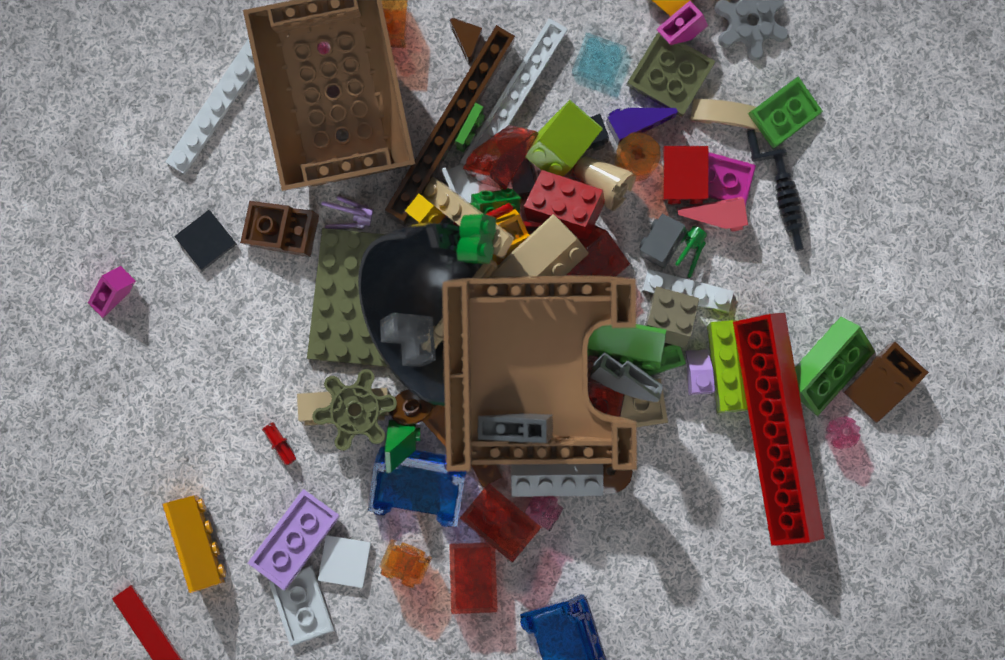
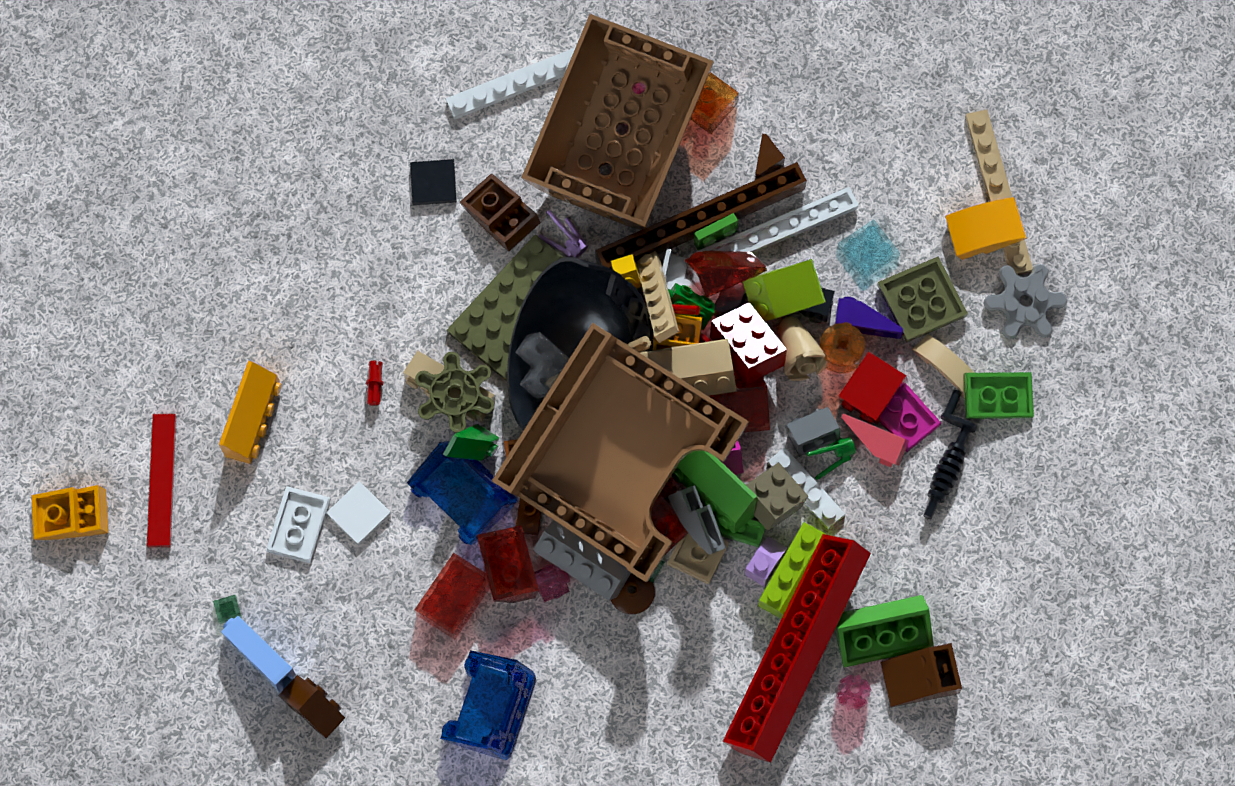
camera: 40 degrees right, 10 degrees down
(111, 290) = (328, 171): dark pink slope -> none
(293, 539) = (331, 466): lavender plate -> none
(404, 563) = (407, 544): clear orange brick -> none
(410, 409) = (501, 425): reddish brown dish -> none
(476, 239) = (647, 312): green brick -> none
(516, 427) = (573, 488): dark grey slope -> none
(683, 25) = (959, 265): dark pink slope -> none

